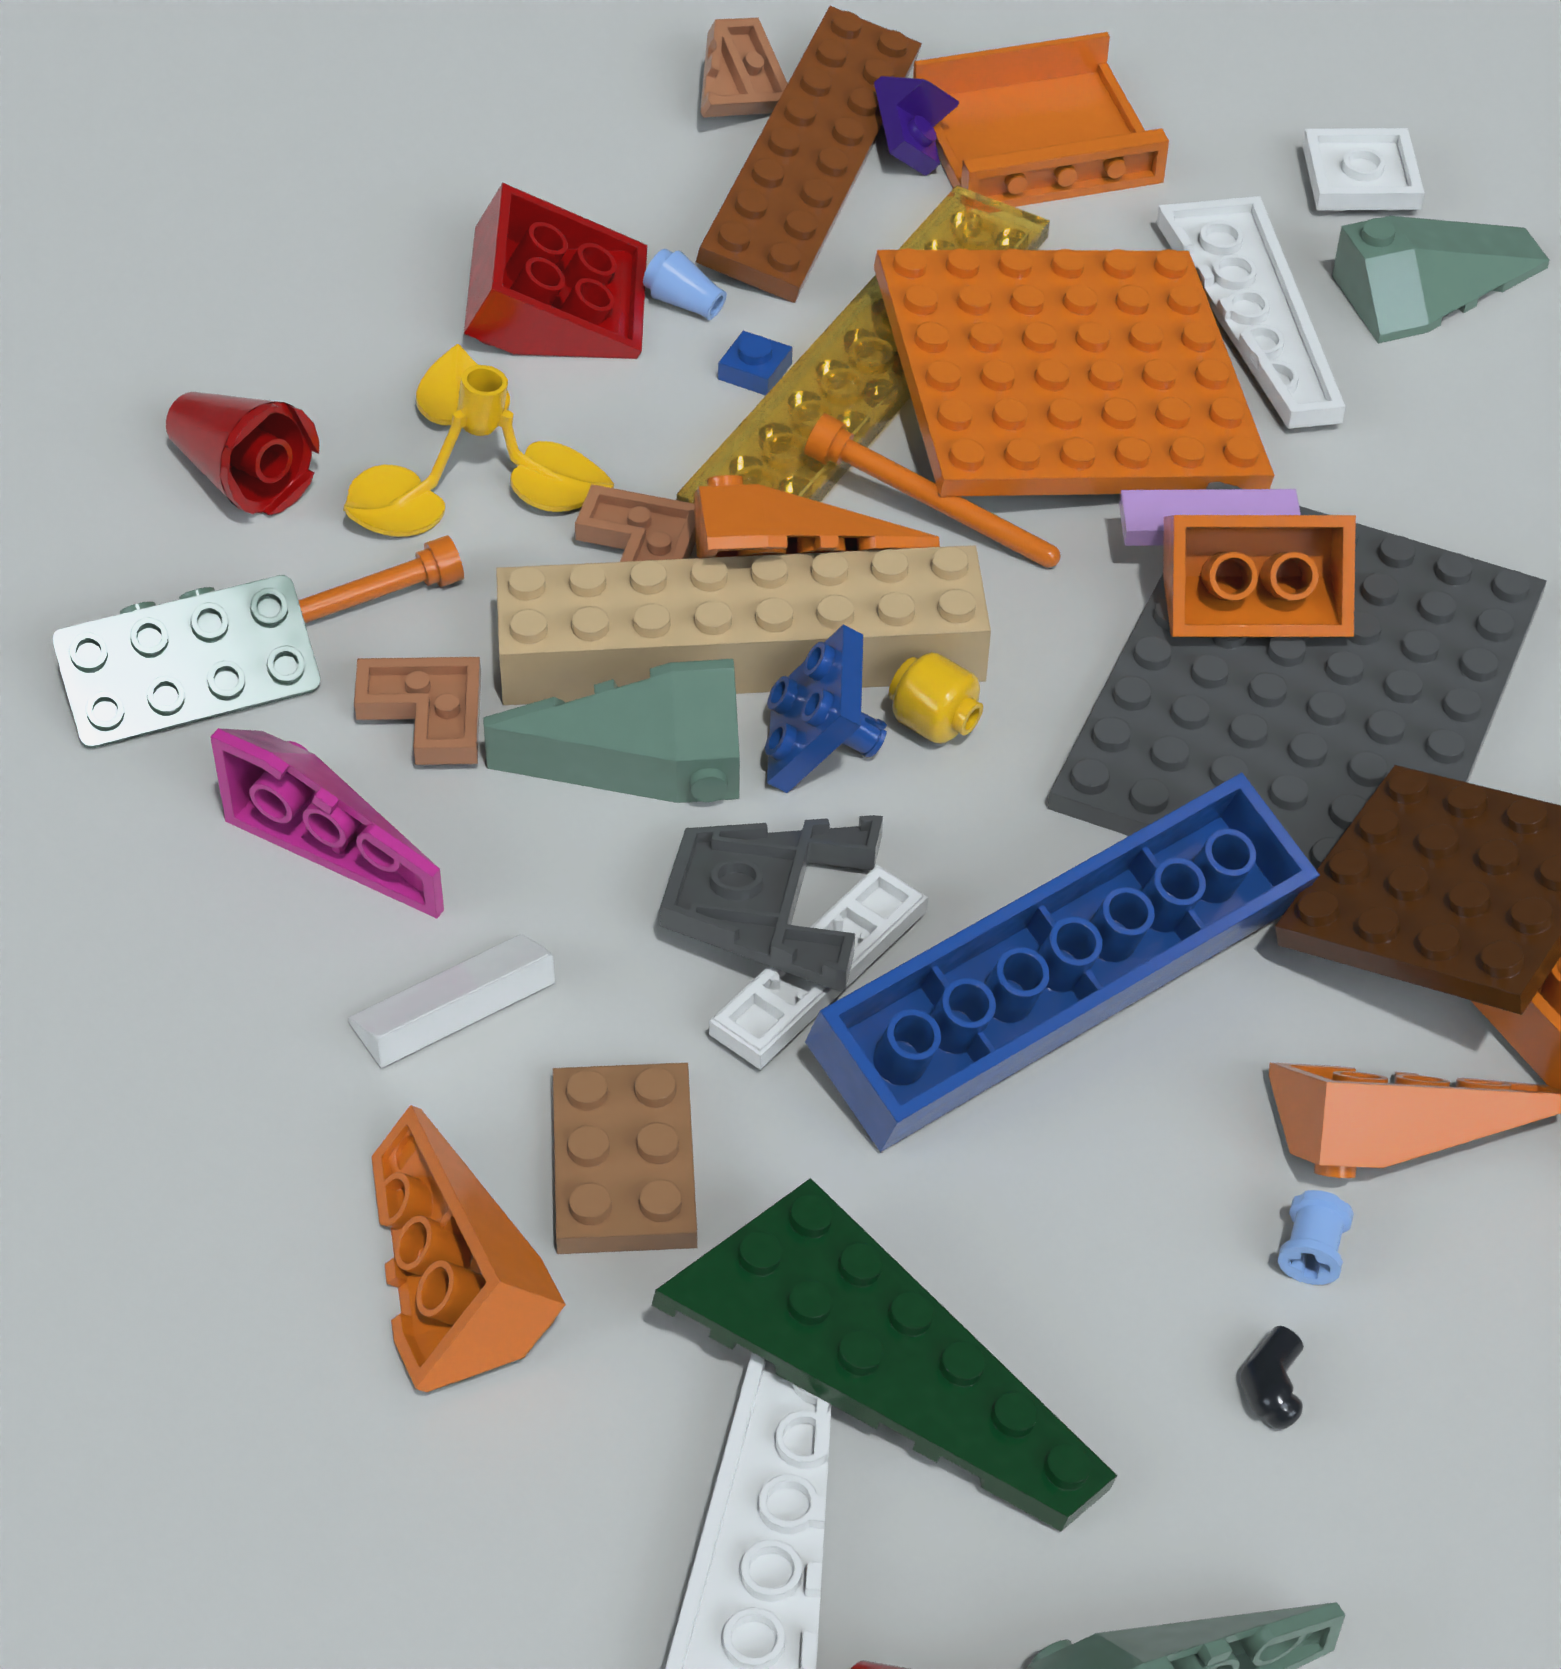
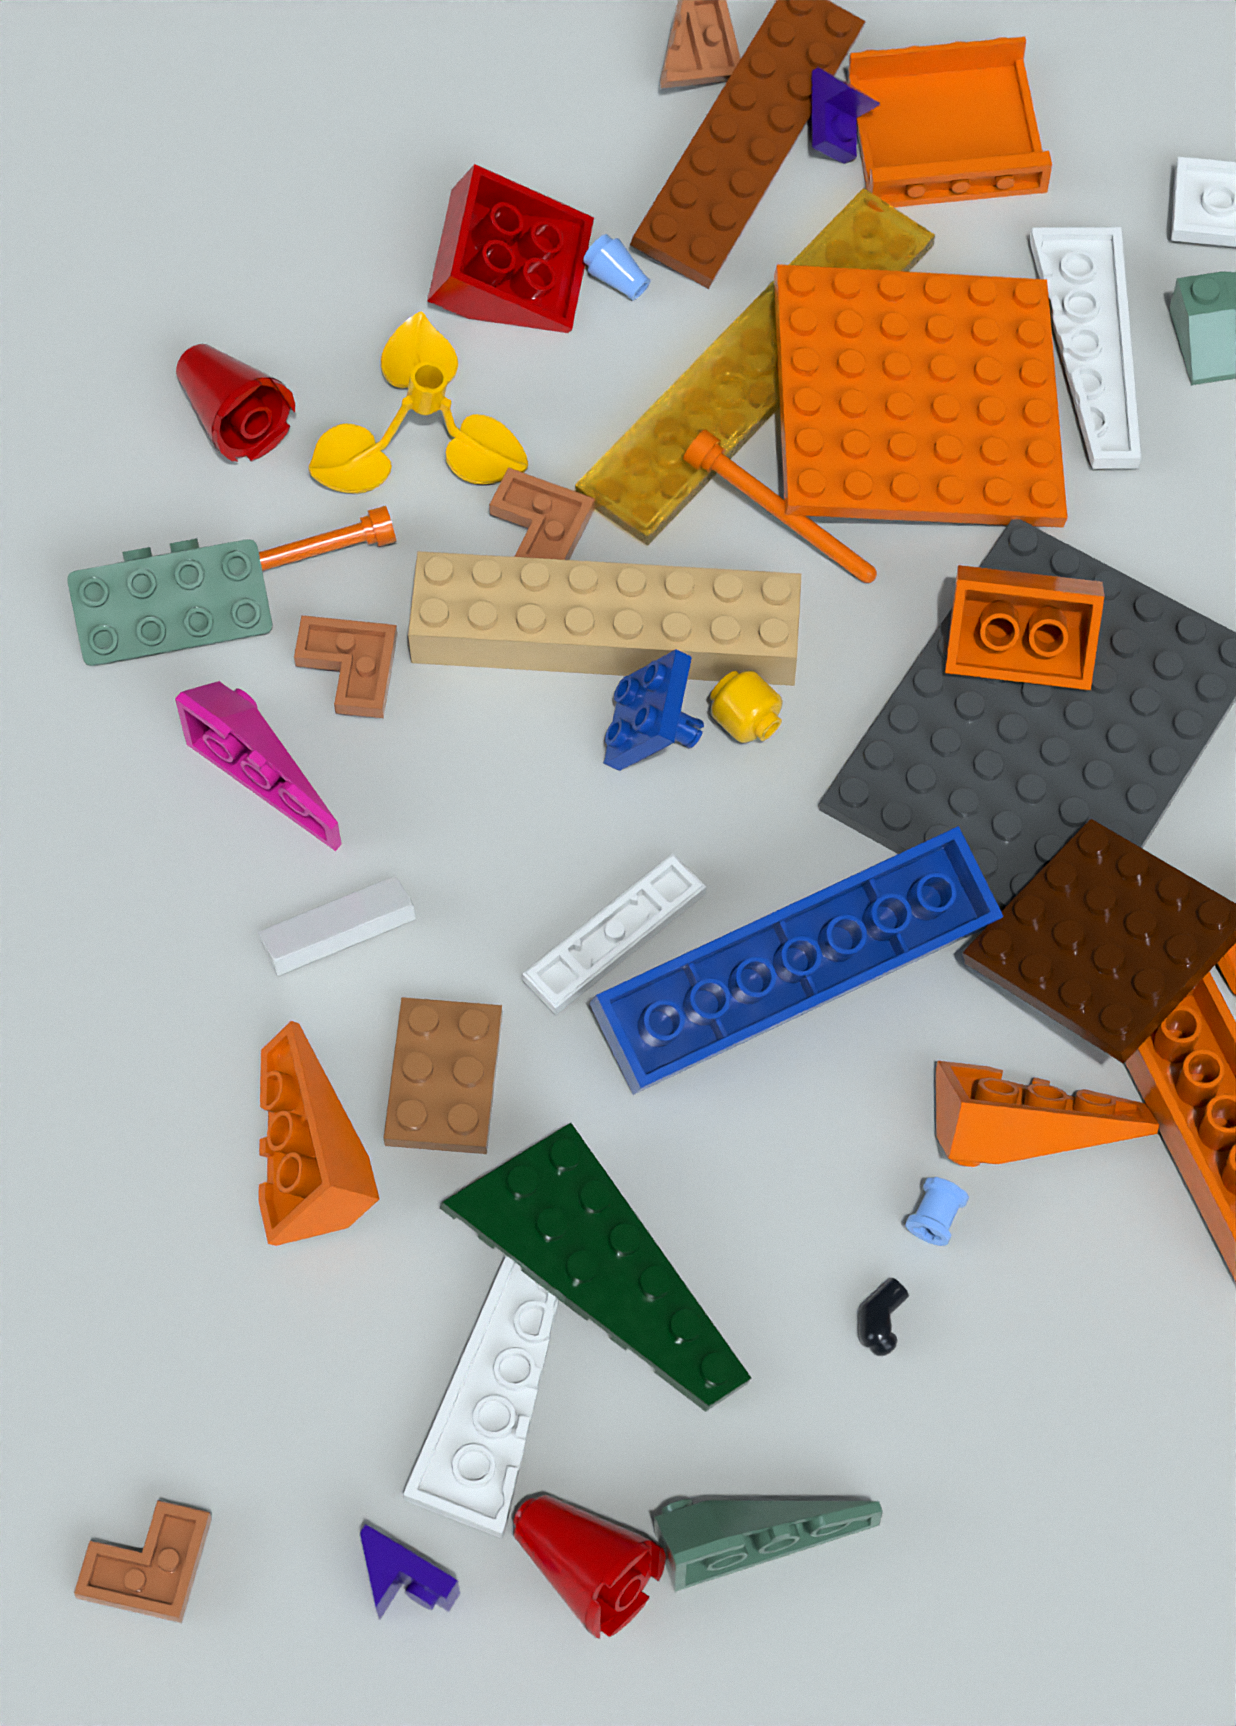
camera: 10 degrees right, 15 degrees up
(645, 739) = (522, 722): sand green wedge -> none
(743, 886) = (566, 857): dark grey wing -> none
(755, 363) = (663, 352): blue plate -> none
(767, 521) = (630, 533): orange wedge -> none
(1145, 510) = (996, 552): lavender tile -> none

